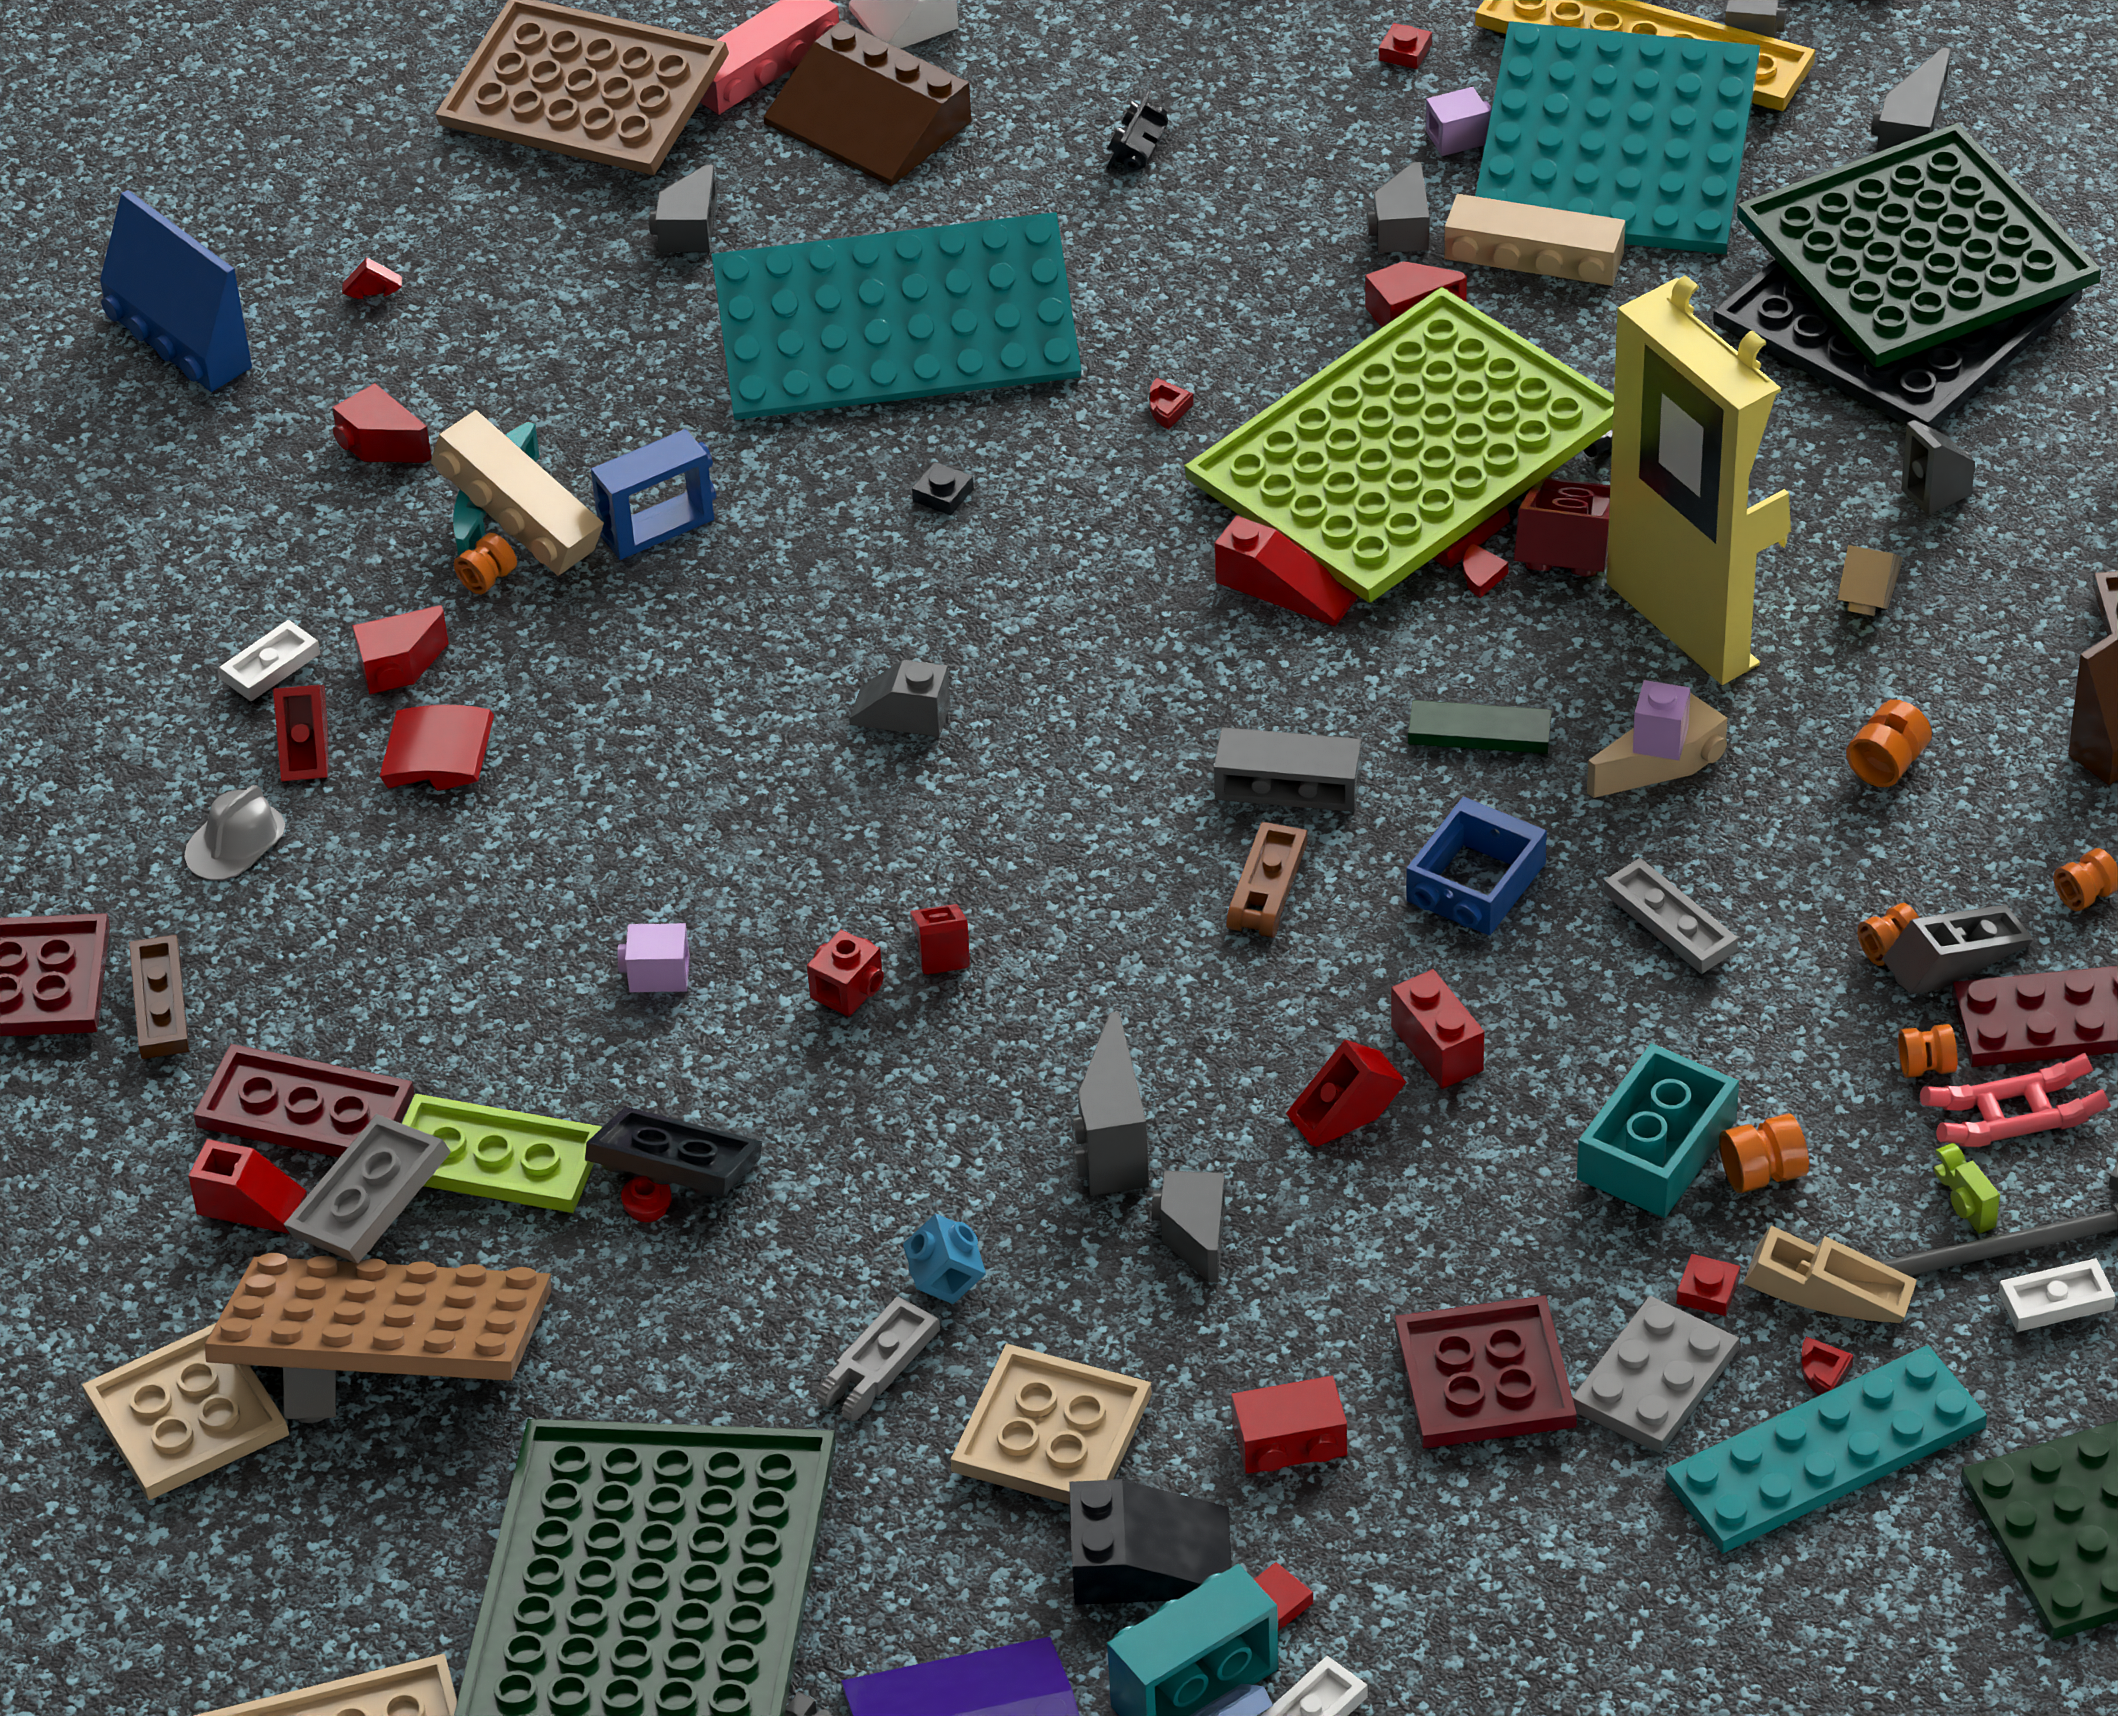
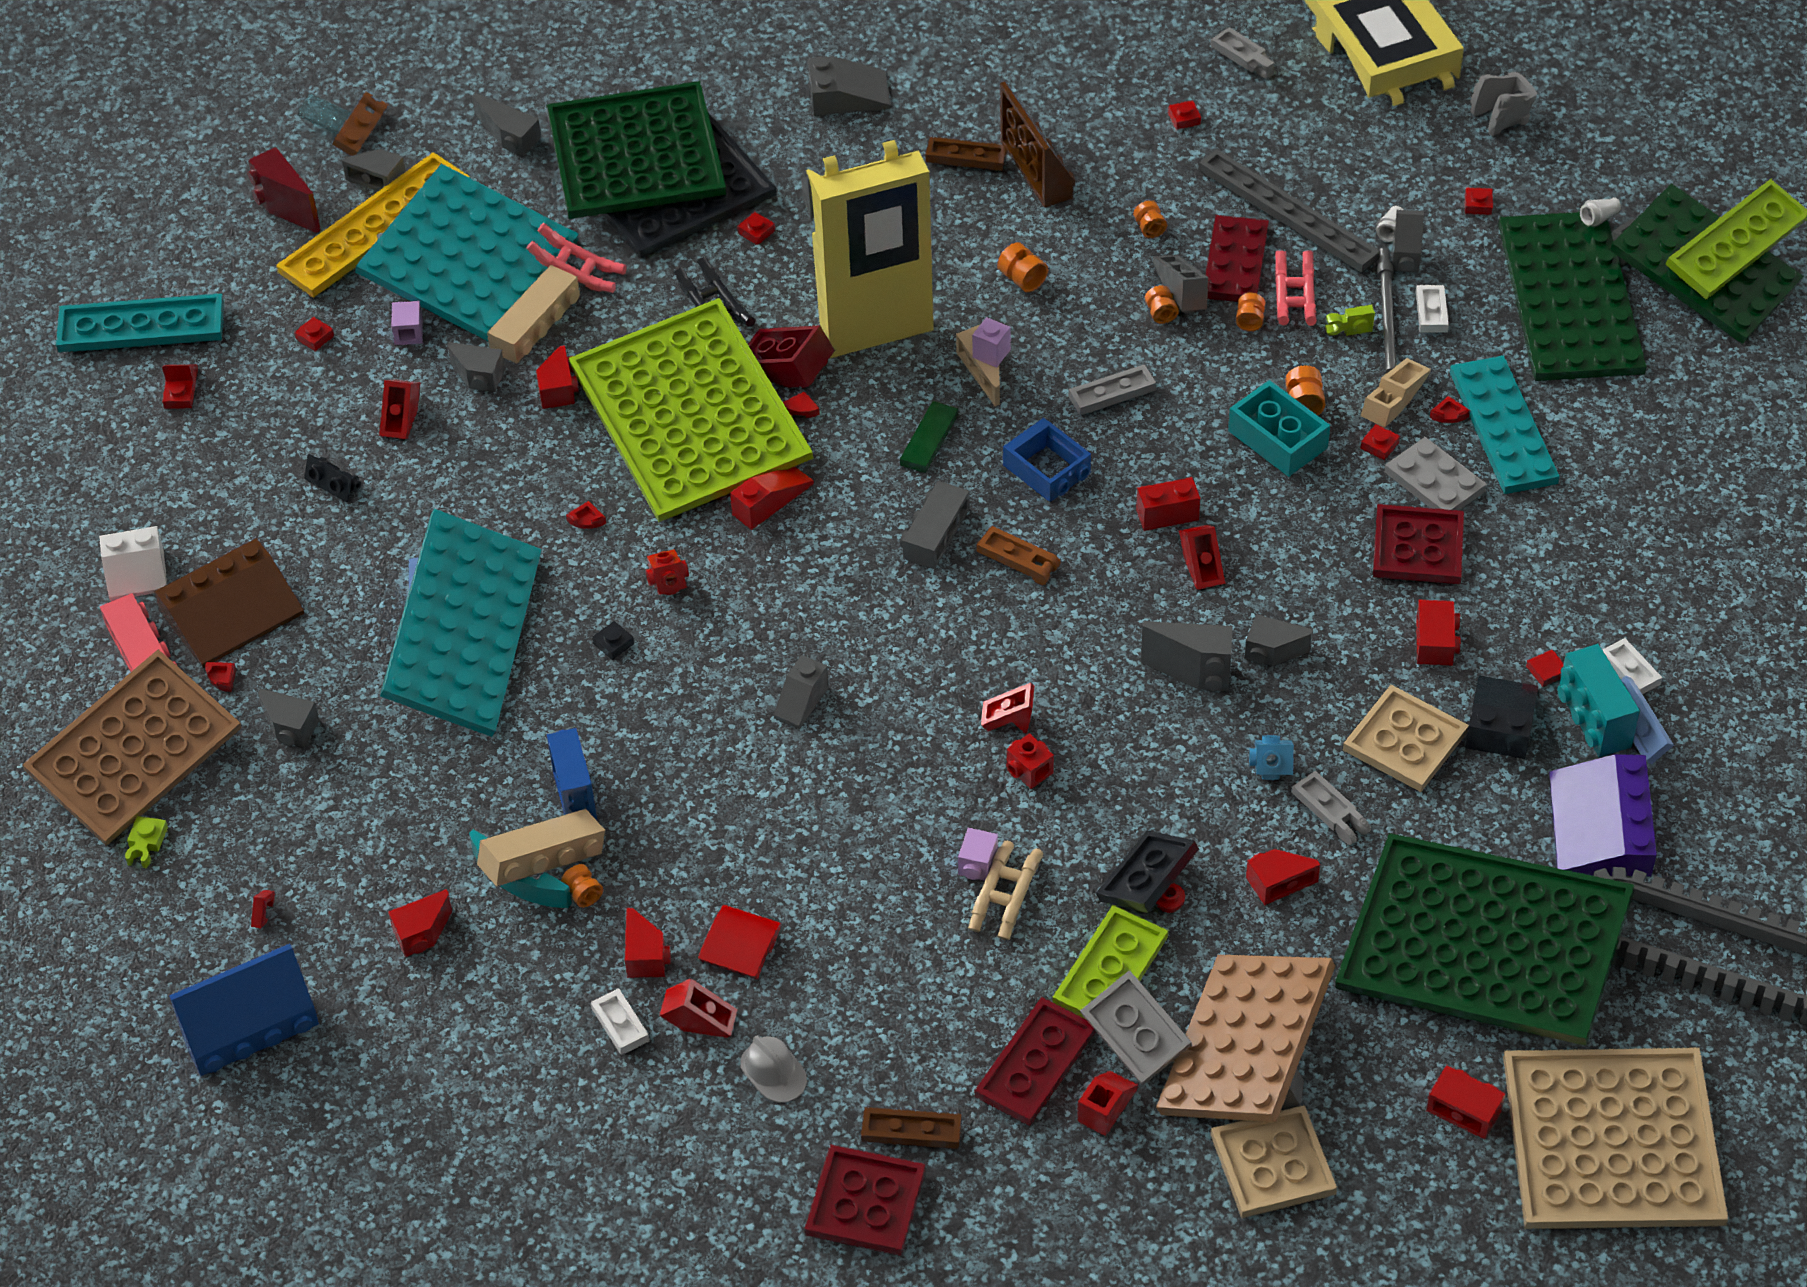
camera: 75 degrees left, 5 degrees up
(340, 1621) = (1465, 1101): none -> red brick
(460, 153) = (144, 837): none -> lime plate
(627, 1018) = (1012, 902): none -> tan piece
(716, 1313) = (1280, 874): none -> red slope
(751, 141) = (221, 675): none -> red tile
(1073, 498) = (666, 572): none -> red brick
(1290, 157) = (399, 408): none -> red slope
(1641, 232) = (568, 248): none -> coral piece
(1841, 431) = (756, 228): none -> red plate

